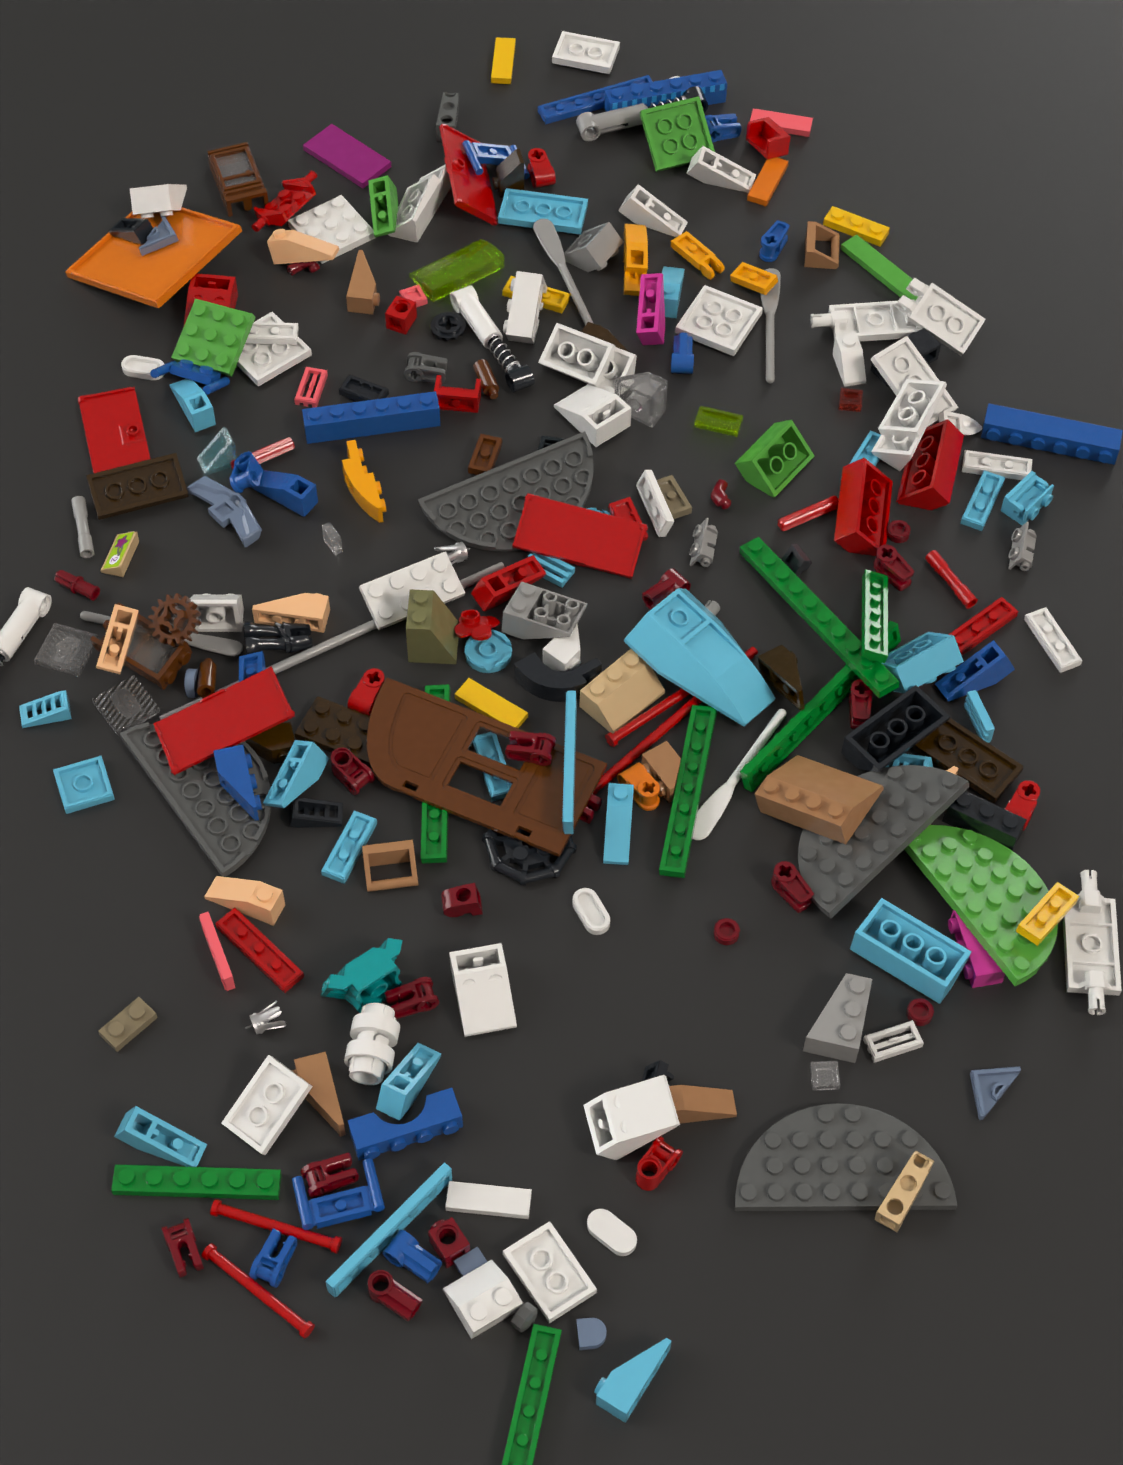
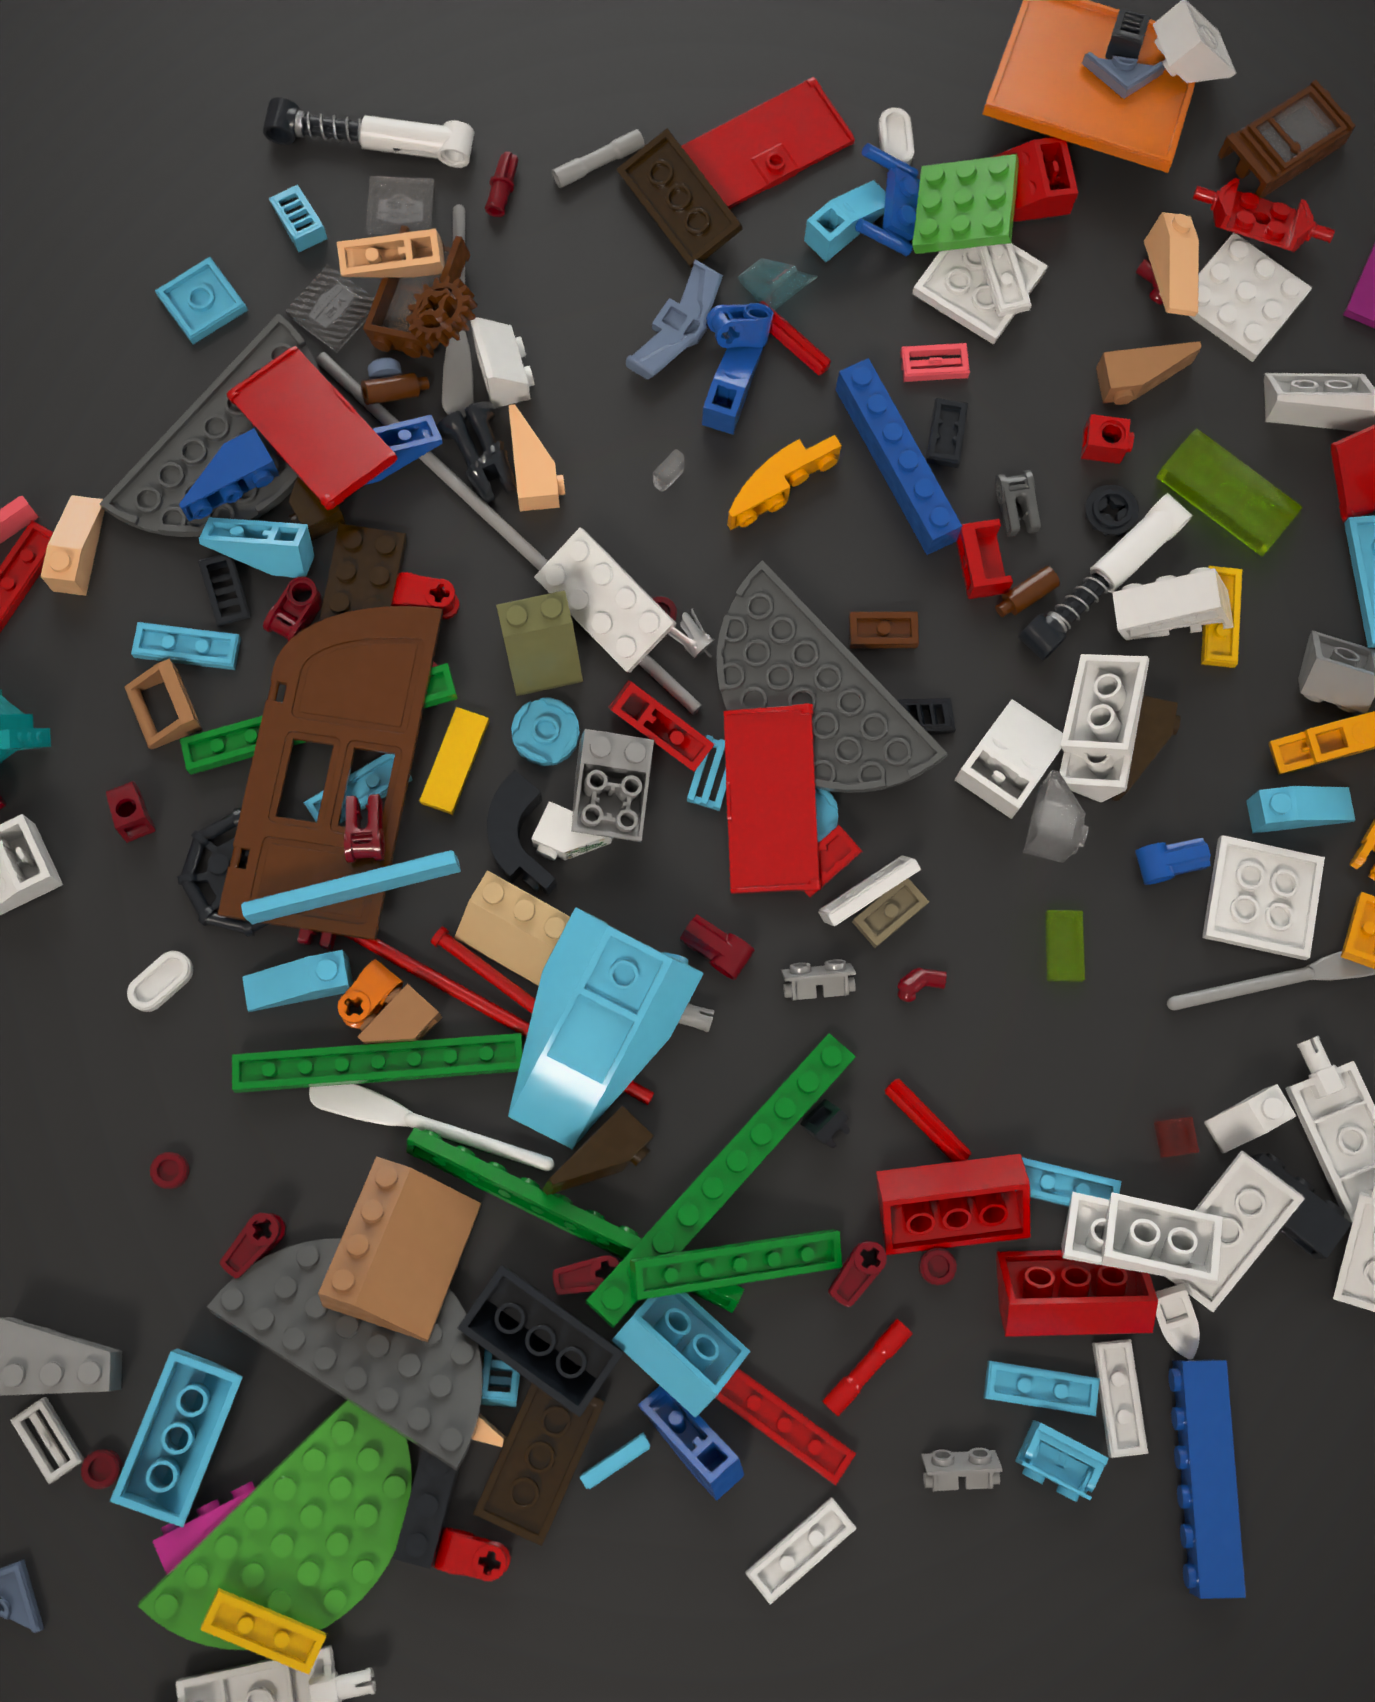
camera: 70 degrees right, 20 degrees up
(120, 554) = (568, 220): slope -> none
(383, 205) = (1304, 351): bright green slope -> none
(415, 294) = (1153, 447): coral tile -> none
(475, 625) = (570, 704): red plate -> none
(552, 245) = (1323, 609): light grey piece -> none
(651, 310) = (1232, 788): dark pink slope -> none
(775, 458) = (1012, 1047): bright green slope -> none

